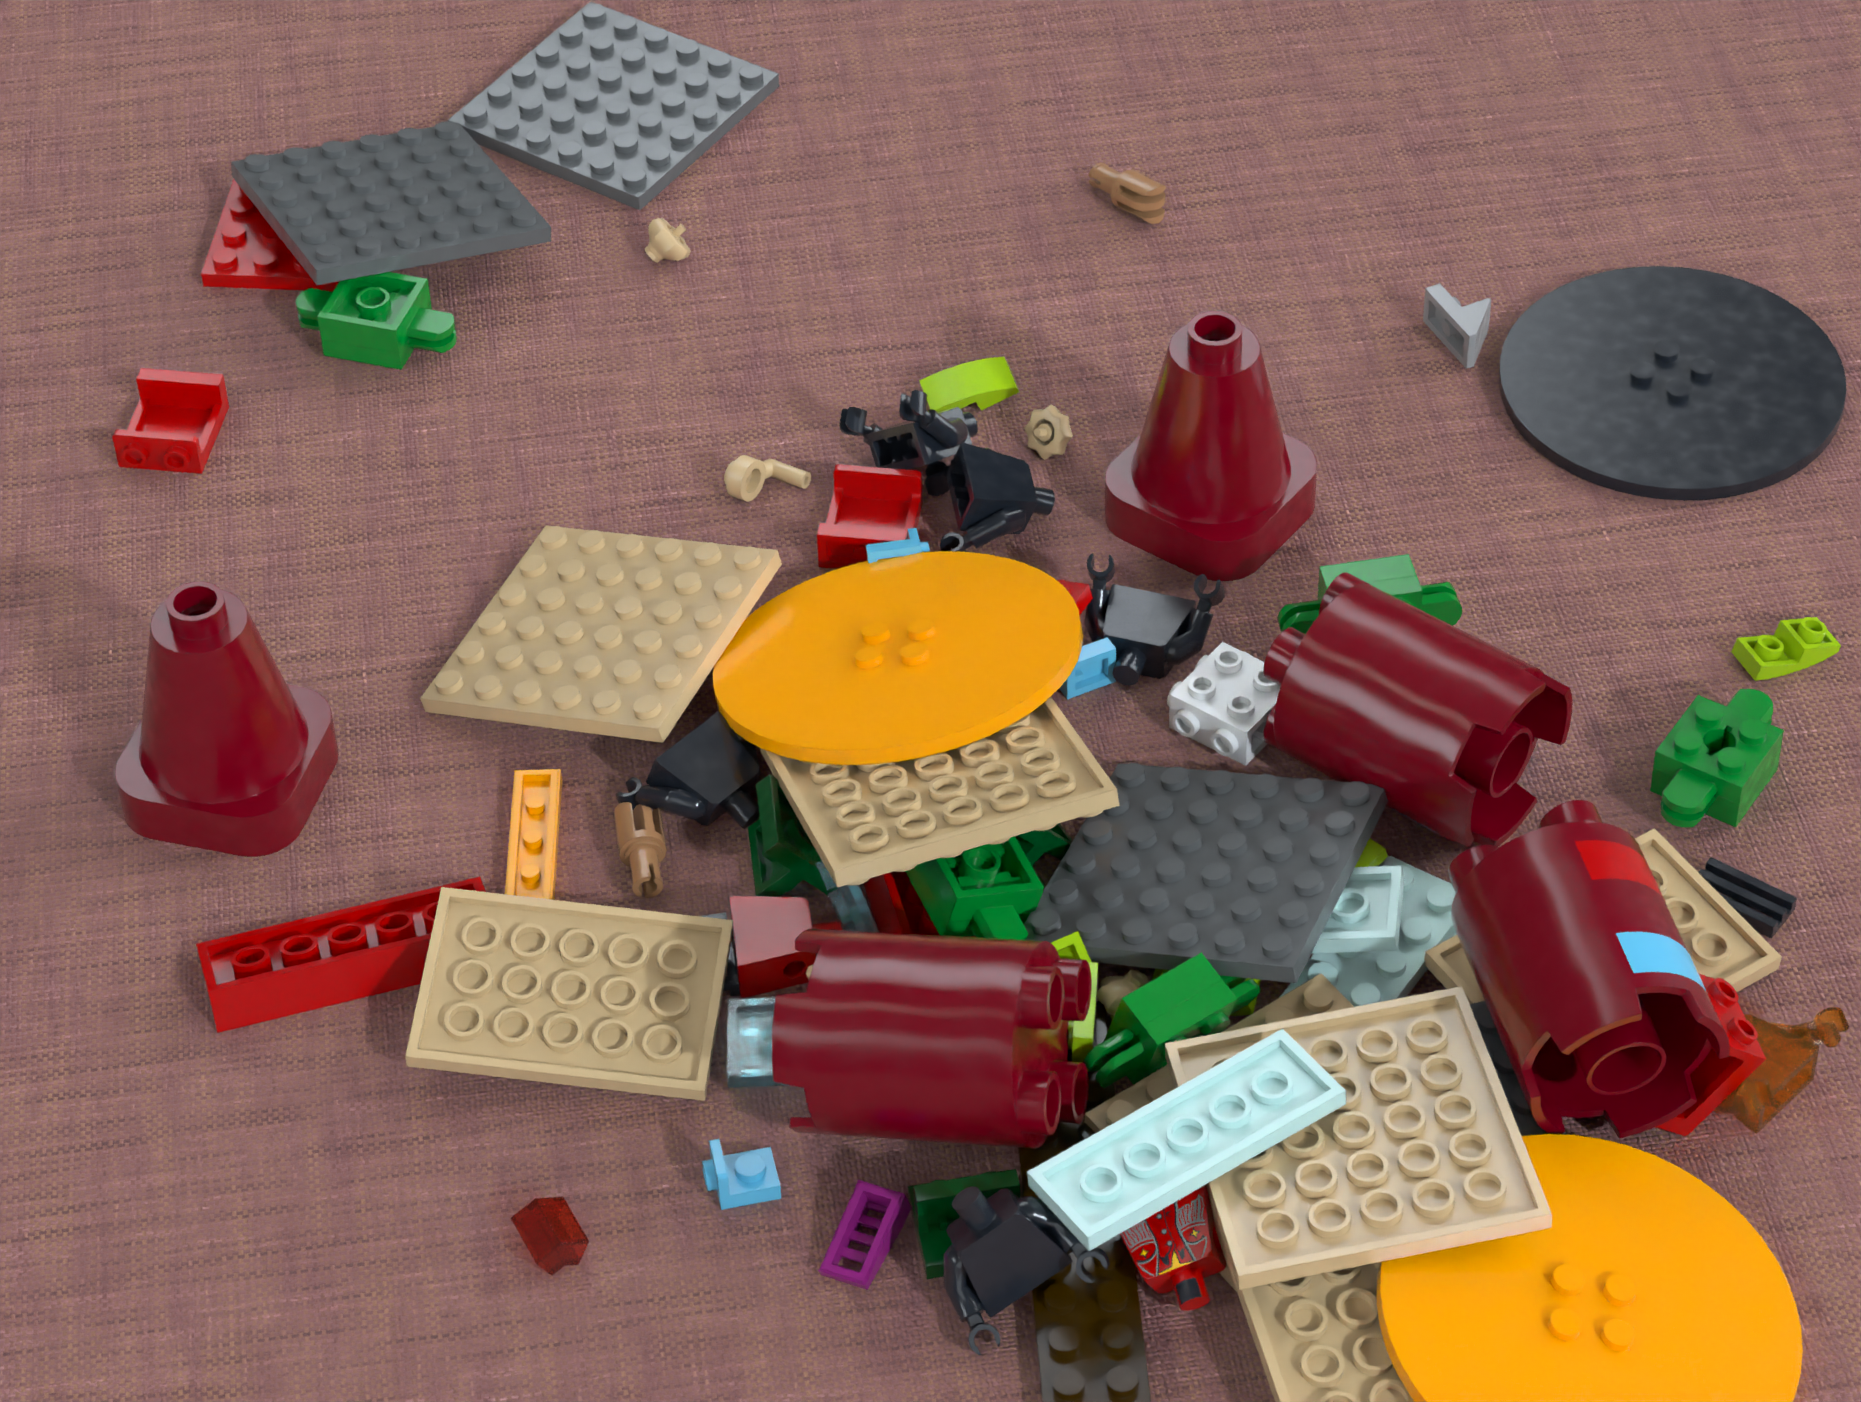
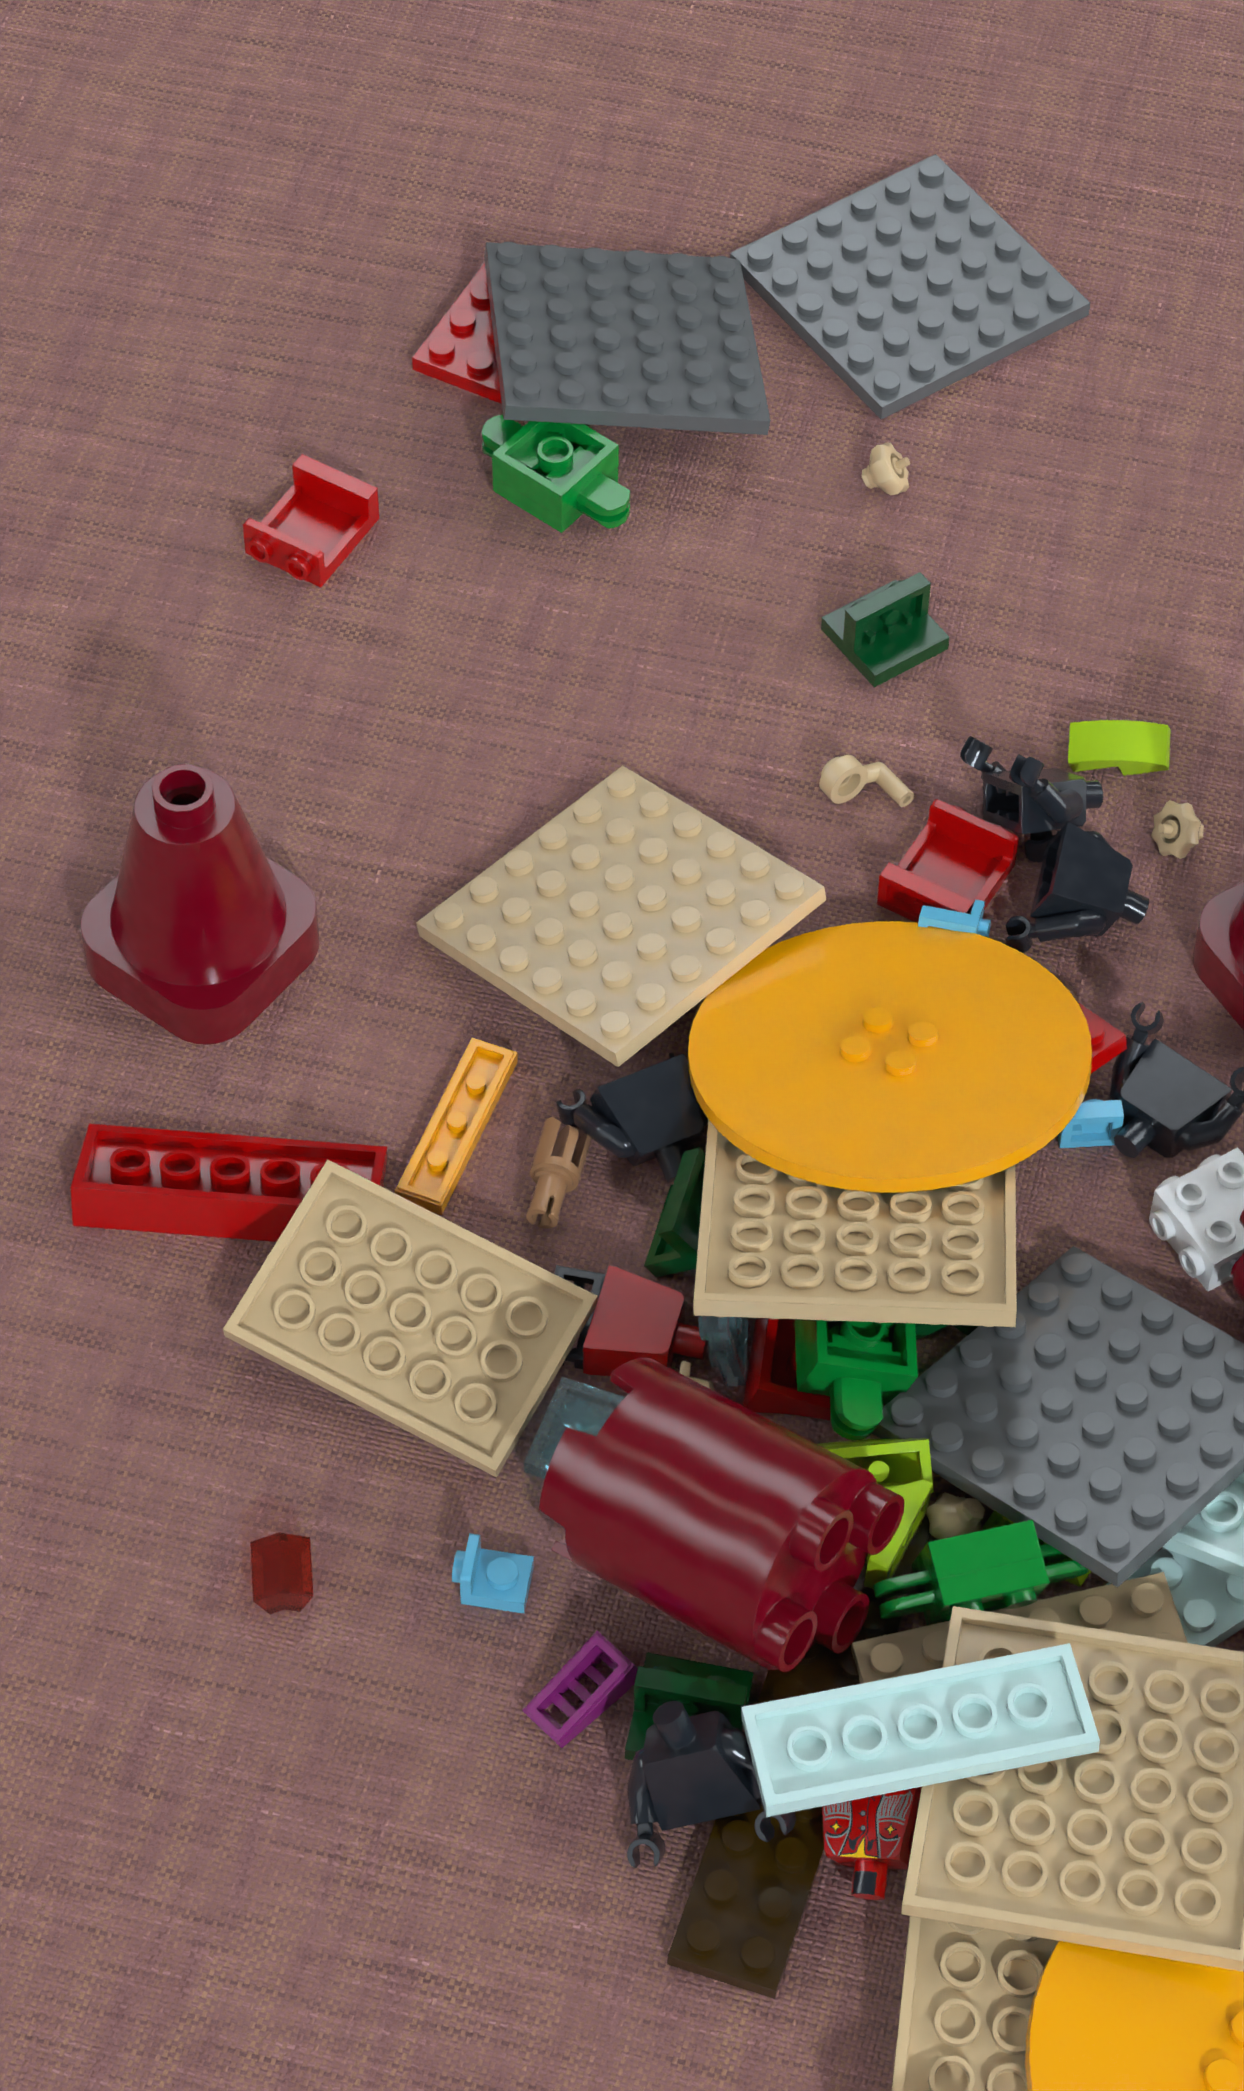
camera: 20 degrees right, 10 degrees up
(726, 358) = (887, 629): none -> dark green bracket

